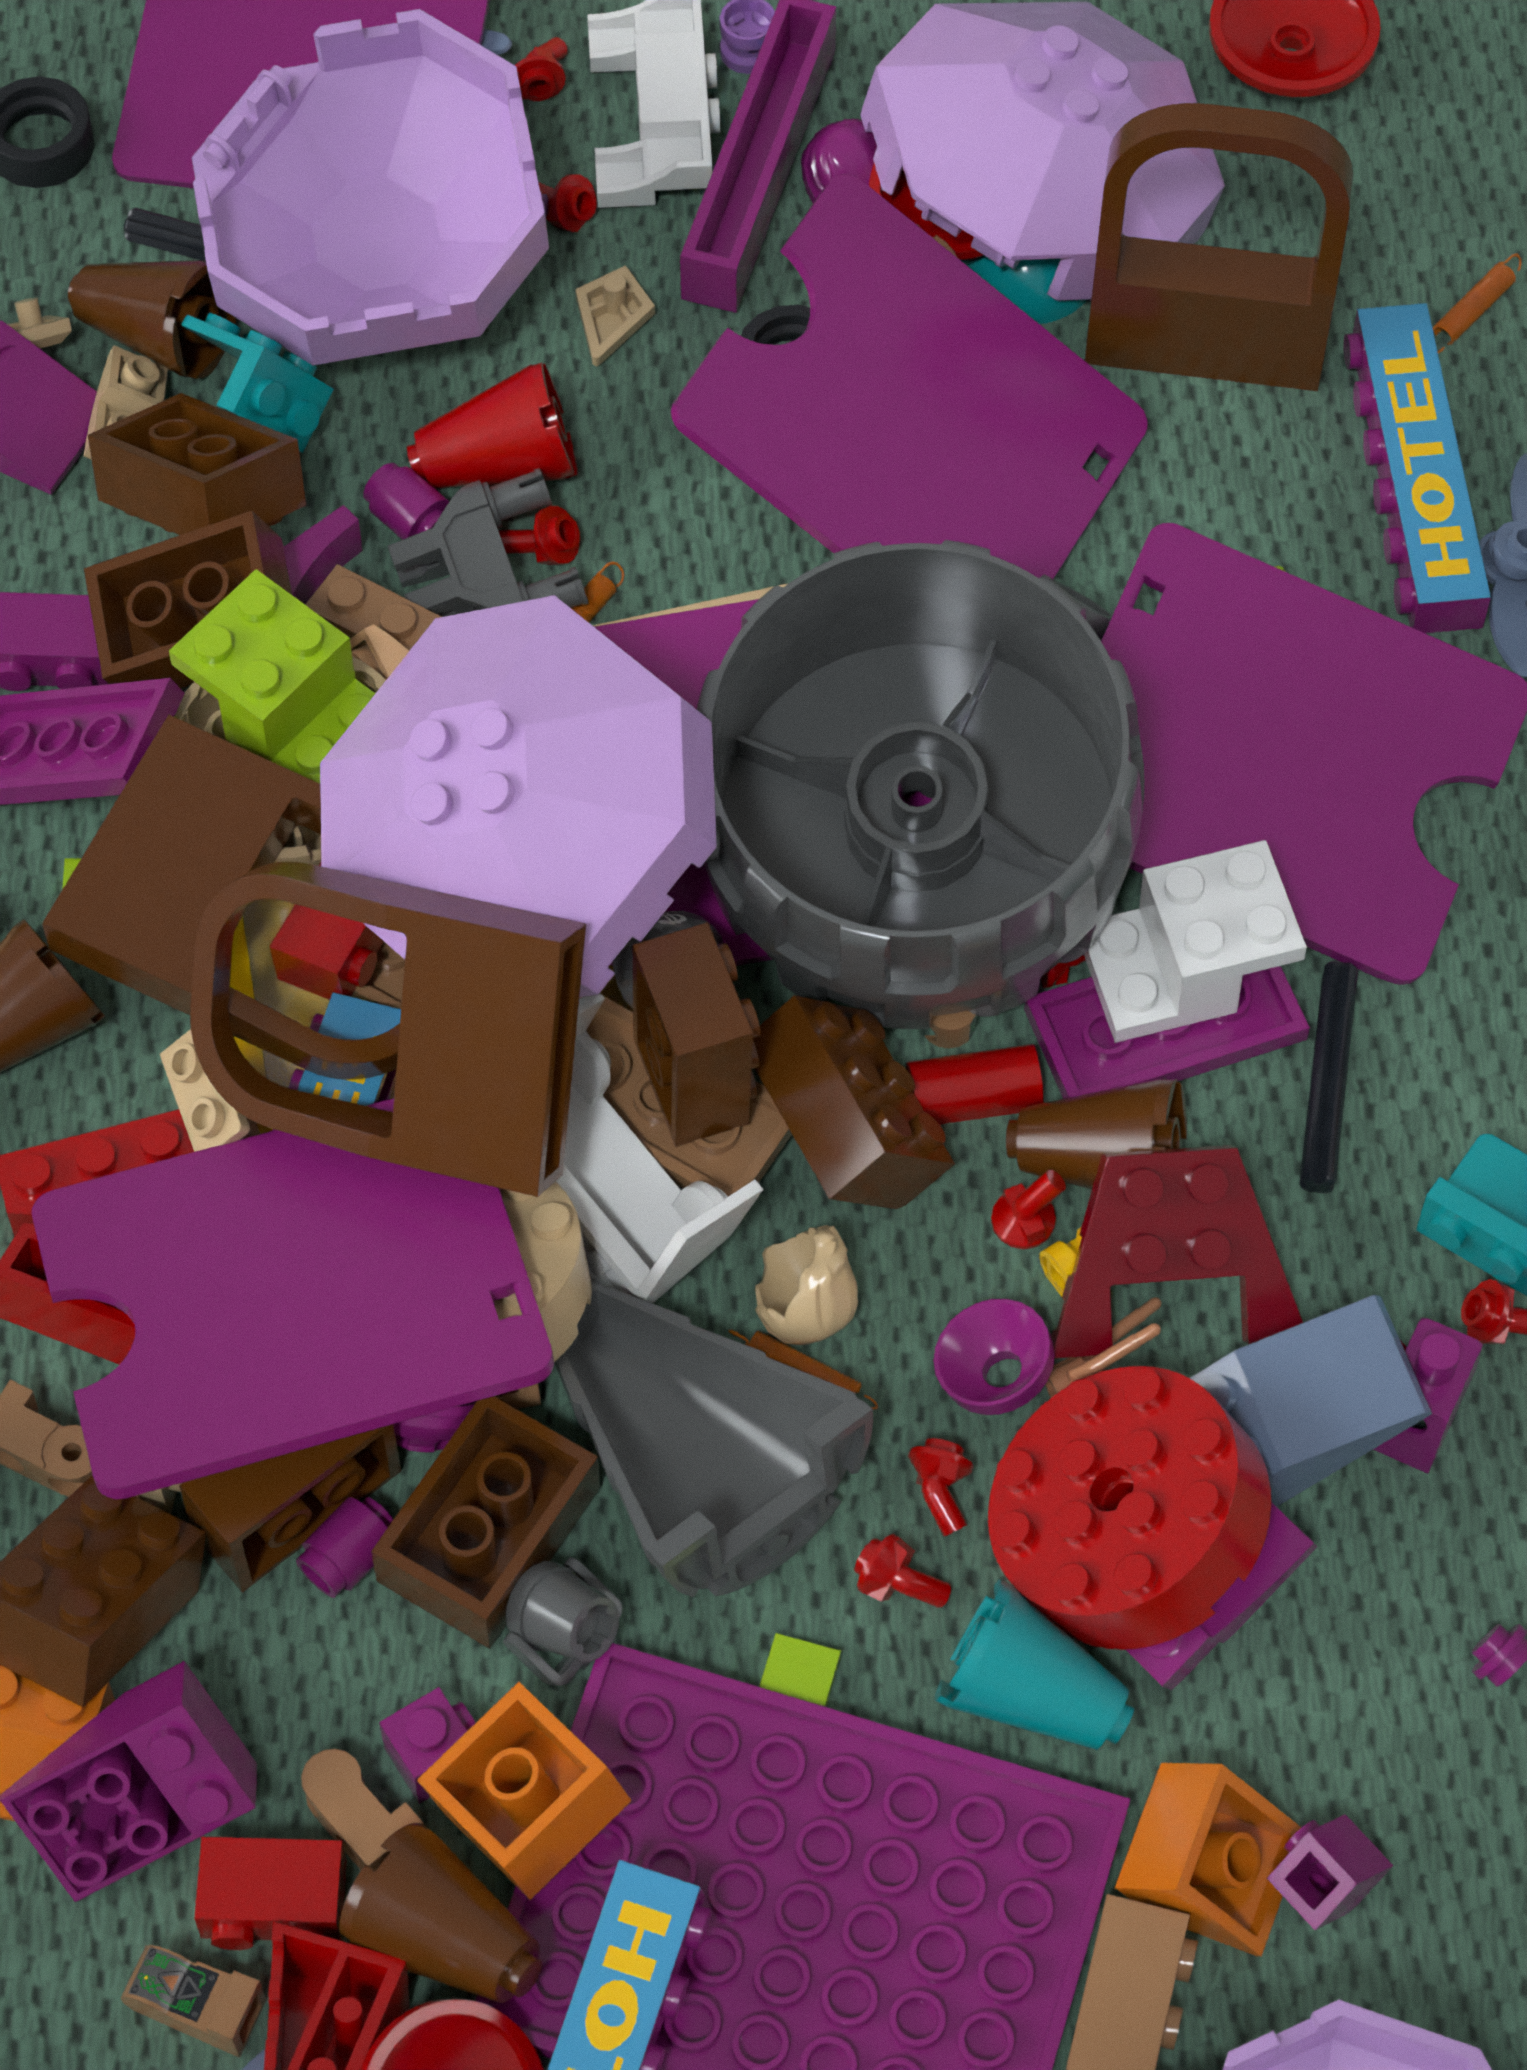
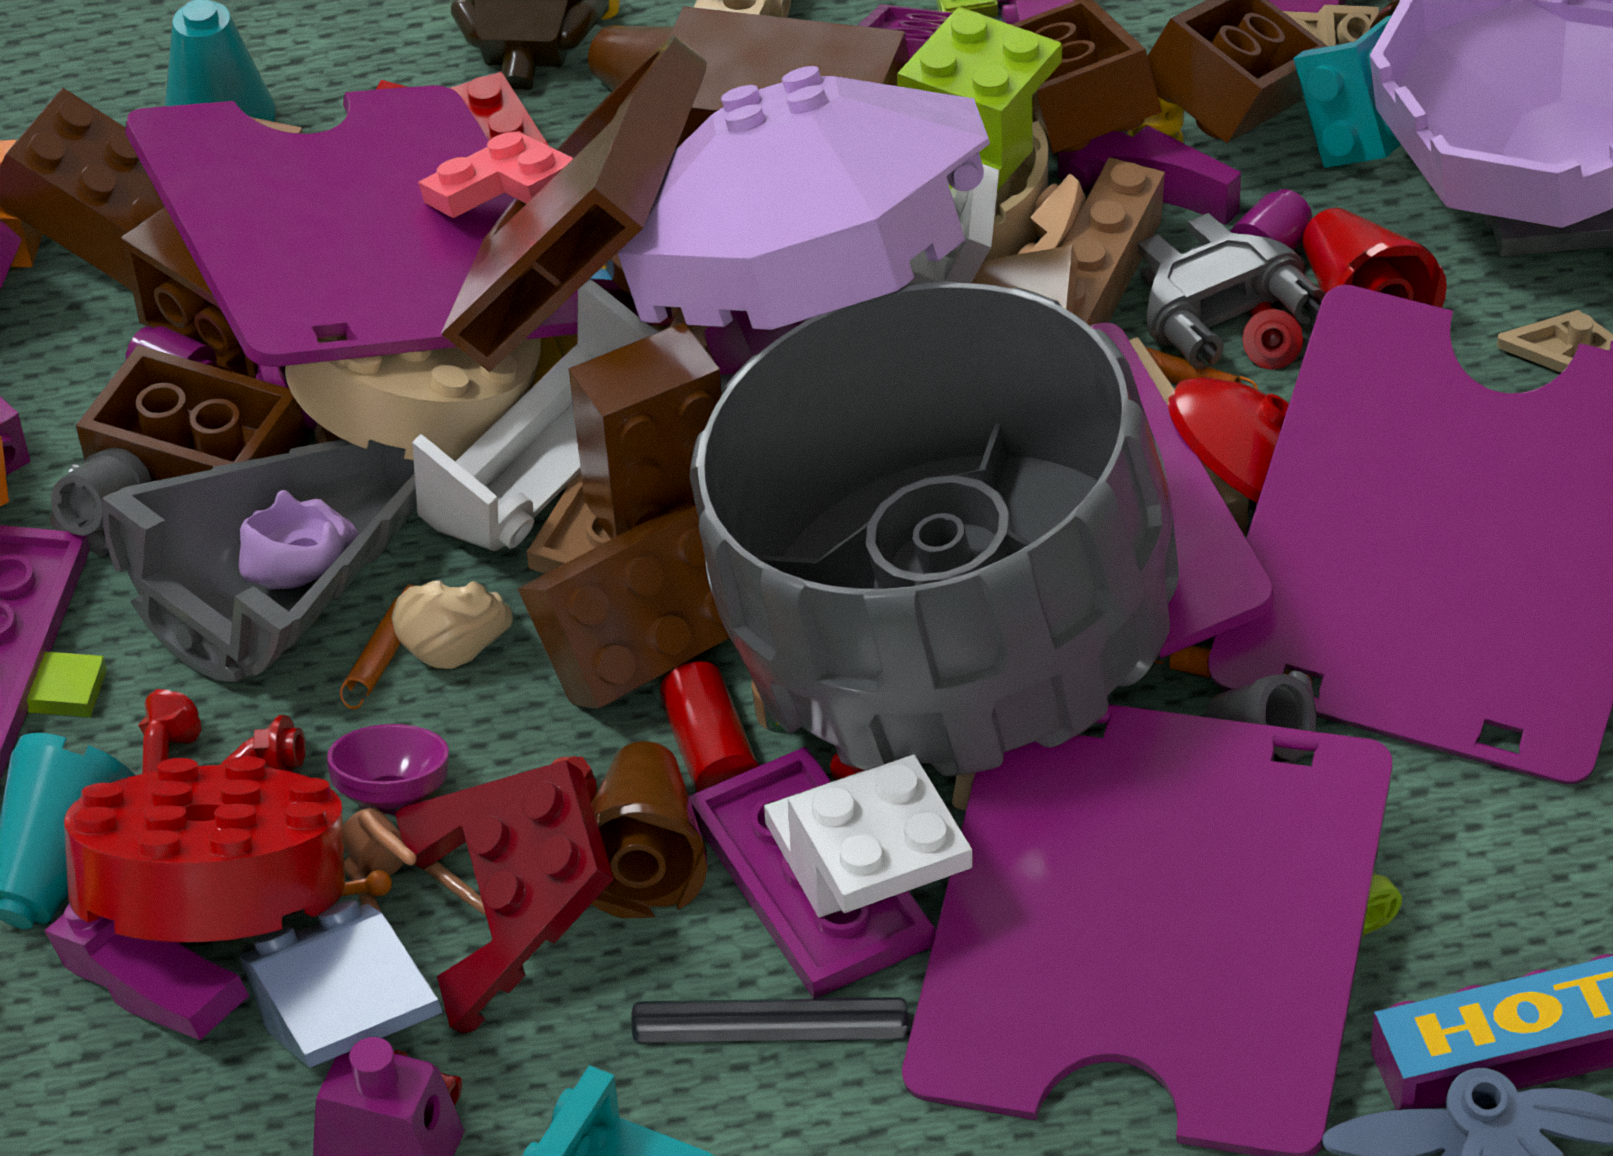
camera: 85 degrees right, 15 degrees down
(255, 1123) = (508, 165): none -> coral plate
(687, 1421) = (292, 542): none -> lavender hair
(729, 562) = (1229, 428): none -> red dish

